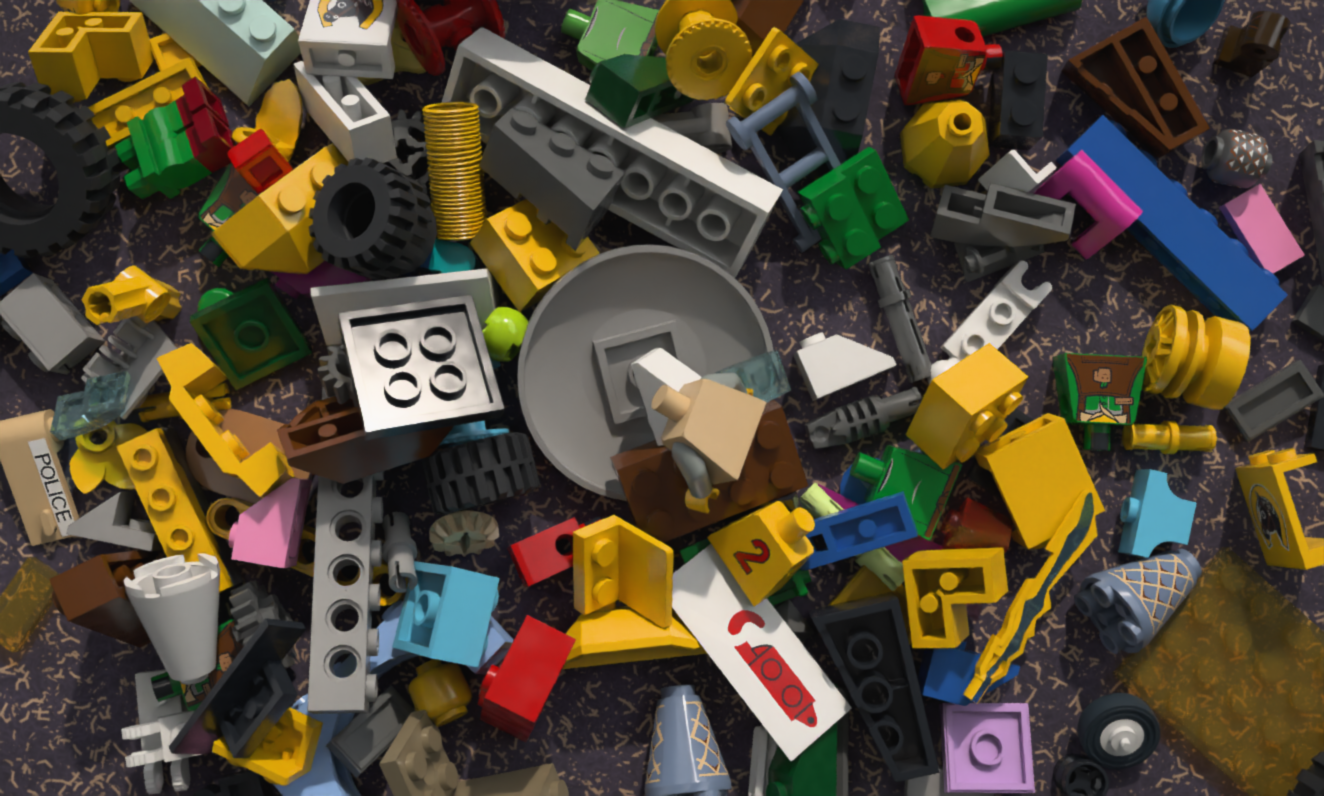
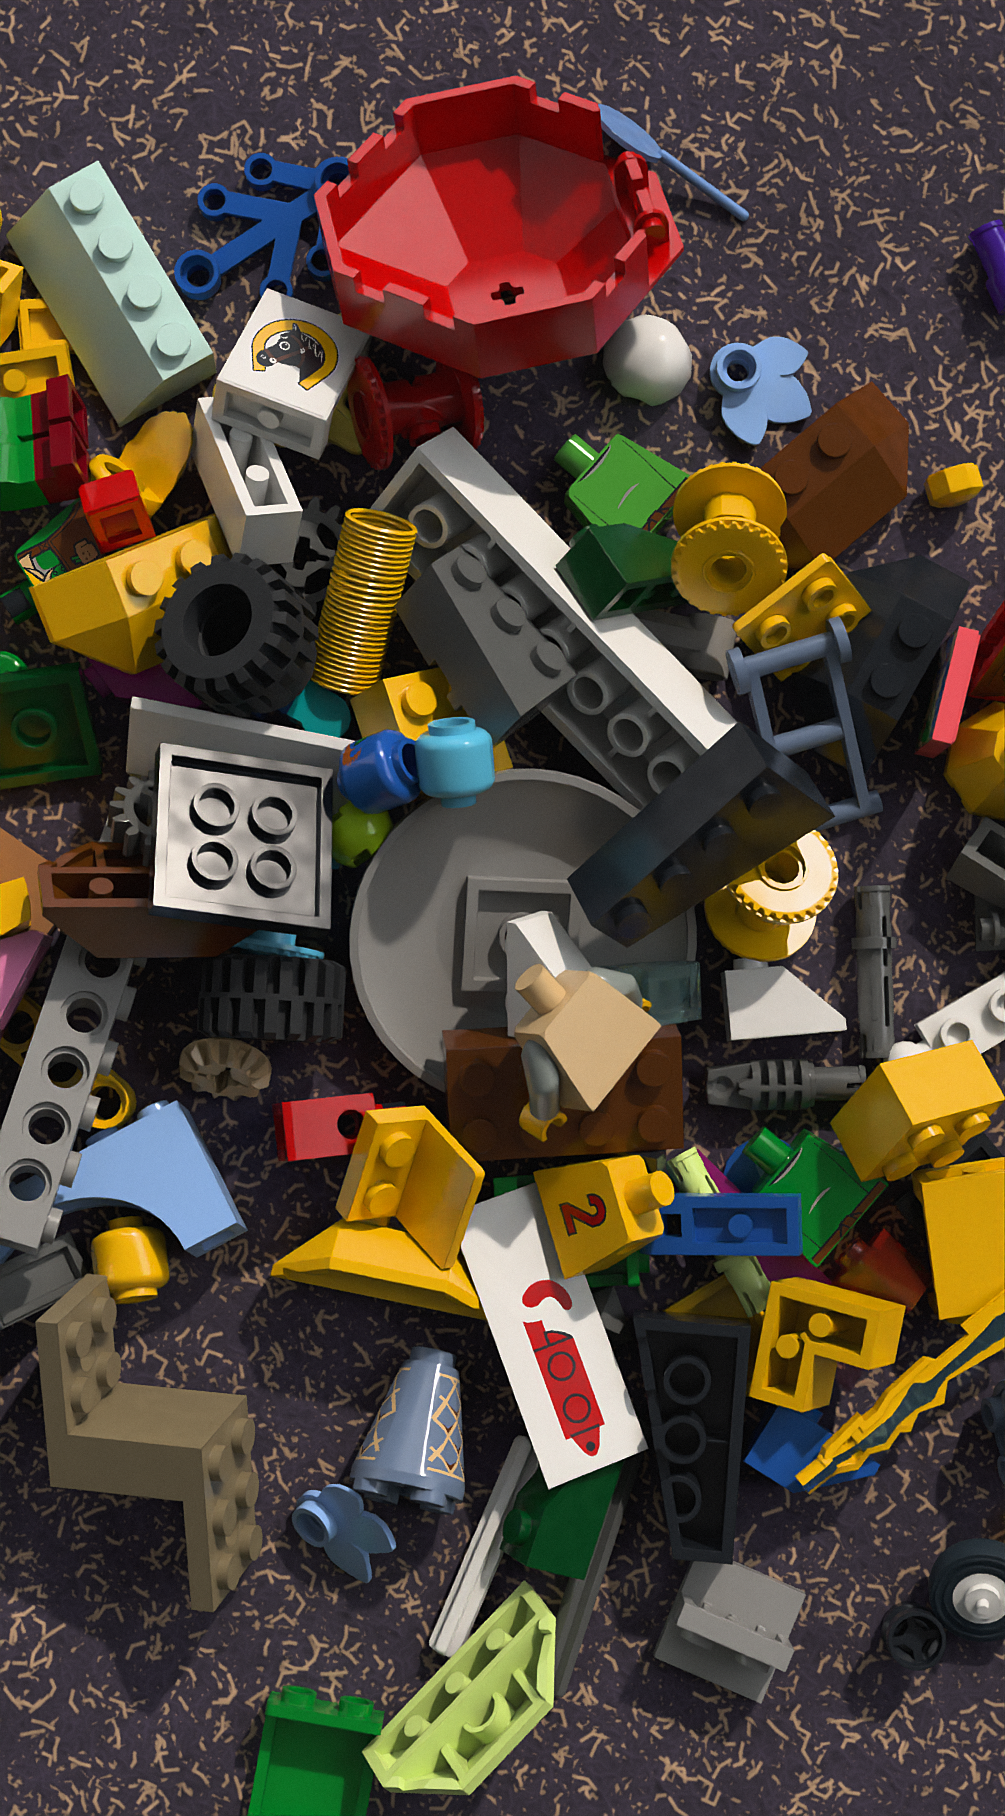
camera: 15 degrees right, 0 degrees up
(399, 552) = (136, 1066): light grey pin -> none
(447, 614) = (173, 1161): medium azure slope -> none
(506, 284) = (379, 772): none -> blue head
(520, 687) = (237, 1286): red wedge -> none
(556, 259) = (455, 761): none -> medium azure head
(749, 257) = (698, 836): none -> black wedge
(811, 281) = (776, 903): none -> yellow hose
(852, 208) = (872, 805): green plate -> none
(891, 104) = (947, 692): none -> coral tile
(986, 748) = (805, 1557): lavender tile -> none

